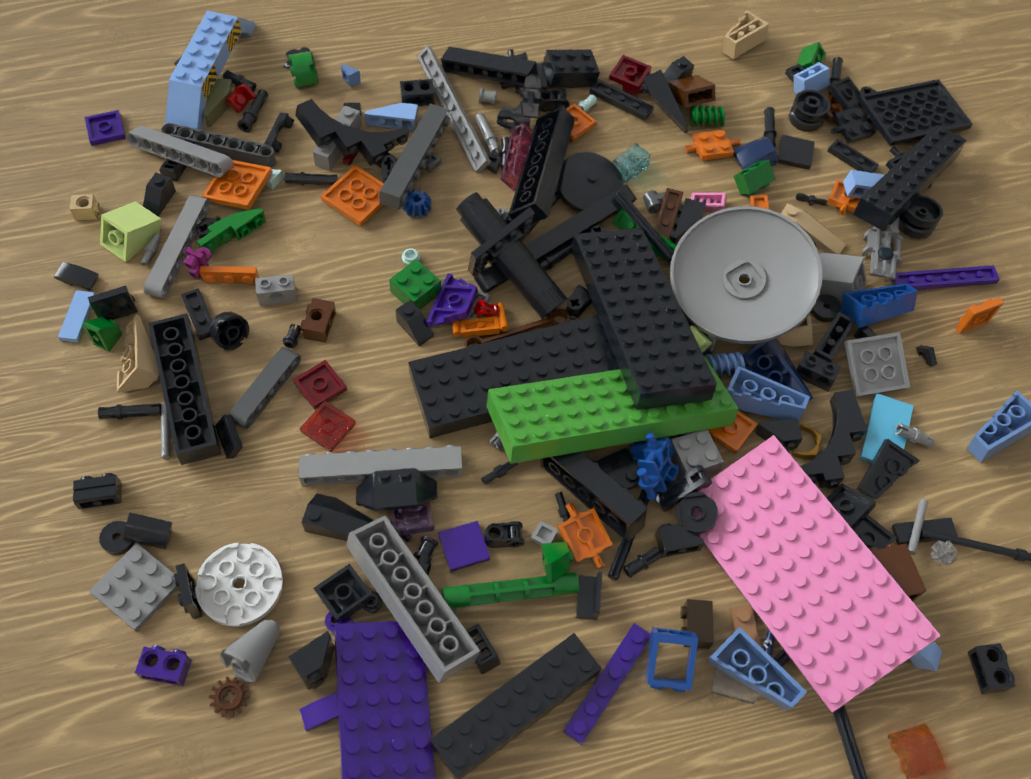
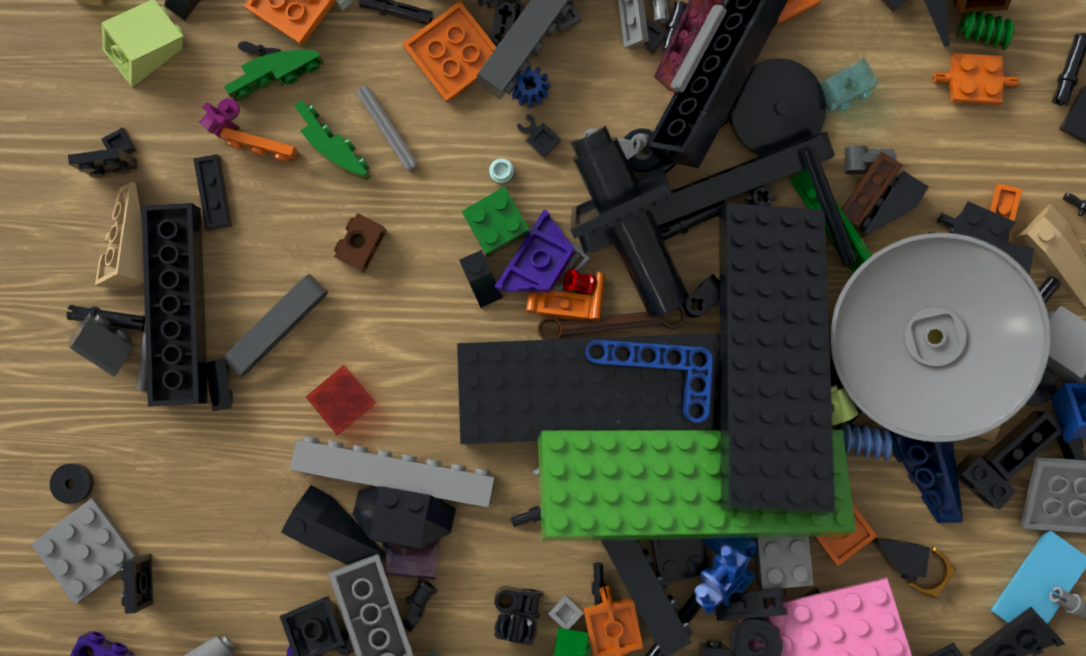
camera: 20 degrees right, 25 degrees up
(76, 275) = (66, 97): black slope -> none
(76, 315) = (56, 165): light blue tile -> none
(97, 491) = (54, 421): black brick -> none
(103, 332) = (87, 197): green slope -> none
(129, 422) = (101, 343): none -> dark grey slope
(147, 530) = (104, 489): black brick -> none
(150, 249) = (165, 76): light grey bar -> none
(173, 251) = (200, 80): light grey beam -> none
(202, 227) = (238, 54): black bush -> none
(229, 330) = (242, 233): black cylinder -> none
(243, 605) = (173, 585): white plate -> none
(276, 290) = (314, 184): light grey brick -> none
(283, 265) = (336, 149): none -> green slope
(290, 340) = (322, 259): black pin -> none
(320, 384) = (343, 338): dark red plate -> none
(321, 248) = (387, 128): none -> light grey axle
(432, 232) = (541, 138): none -> black plate
(464, 546) = (468, 599): dark purple tile -> none
(508, 551) = (515, 629): none -> black gear
(525, 155) = (698, 48): none -> light grey axle
(560, 336) = (660, 362): none -> blue beam
(718, 198) = (939, 168): bright pink slope -> none
(754, 177) = (1015, 156): green brick -> none
(756, 151) = (1032, 115): dark blue slope -> none
(765, 396) = (894, 500): medium blue wedge -> none
(847, 427) = (990, 568): black arch -> none

